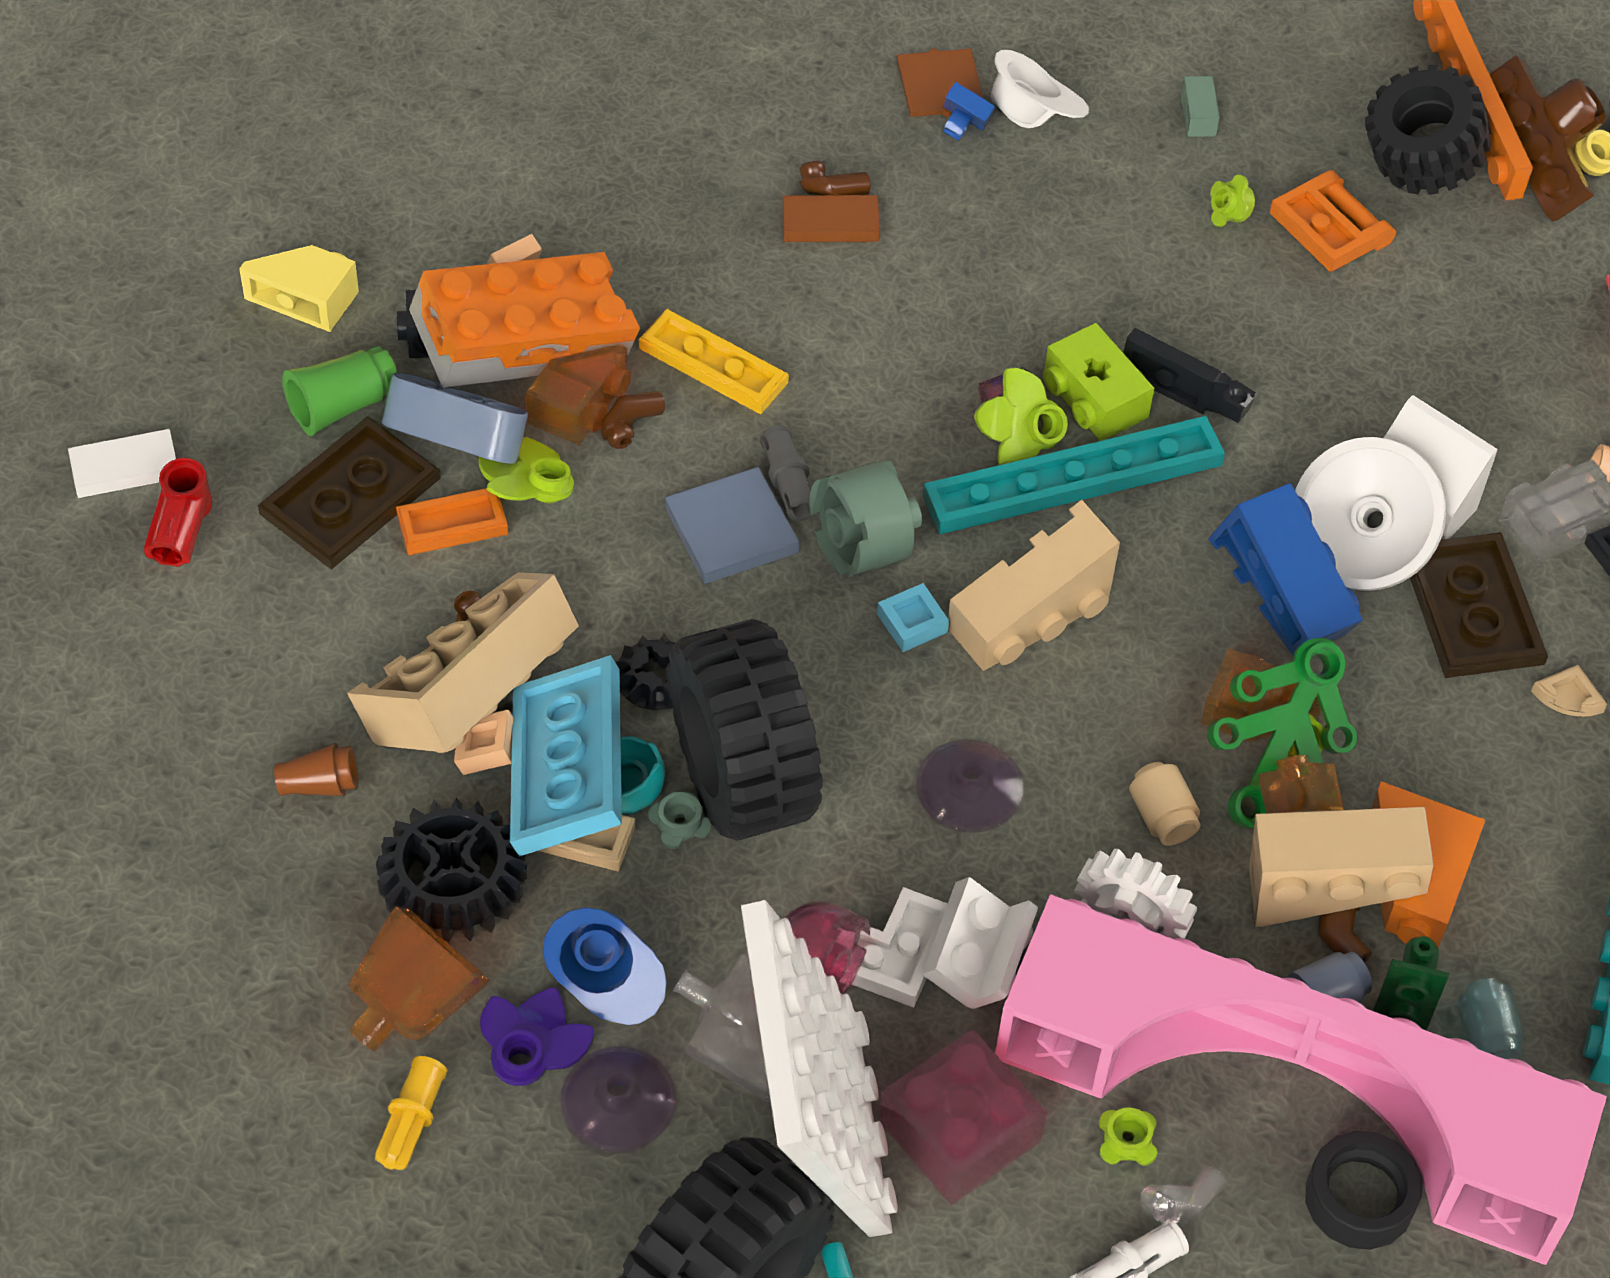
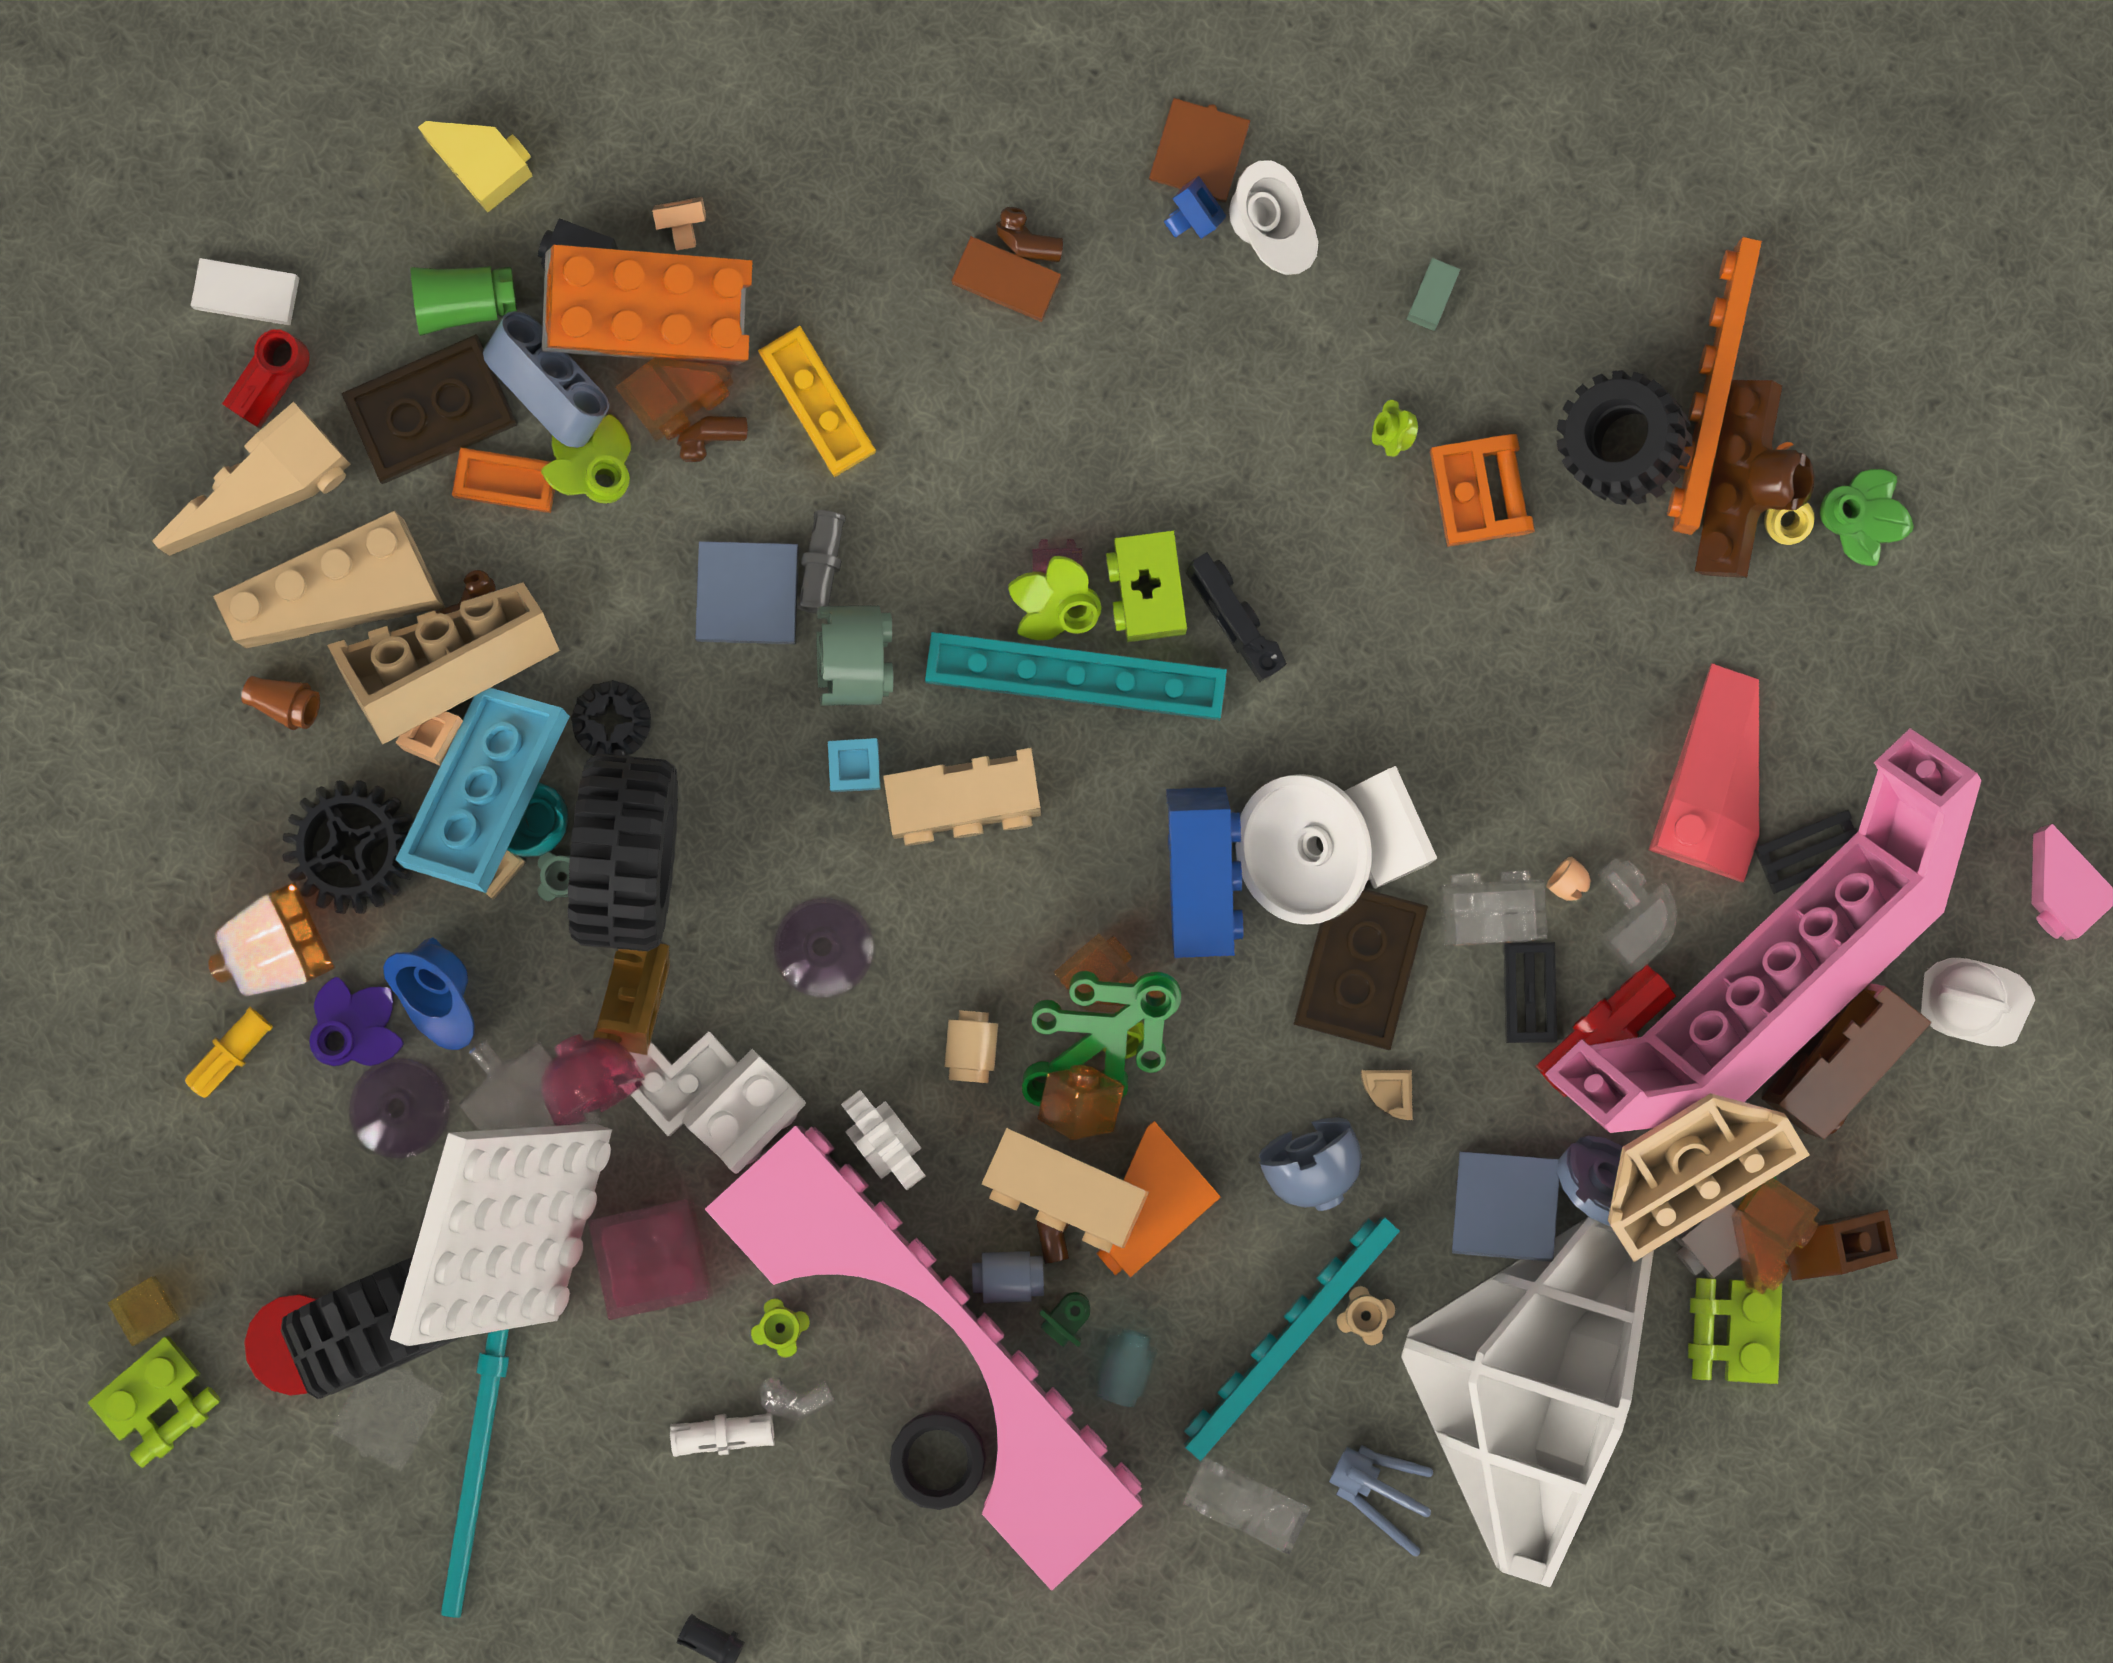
camera: 30 degrees right, 30 degrees up
(228, 580) = (285, 466): none -> tan wedge
(324, 654) = (335, 586): none -> tan wedge
(814, 872) = (634, 997): none -> pearl gold hinge
(1551, 766) = (1315, 1166): none -> sand blue cylinder

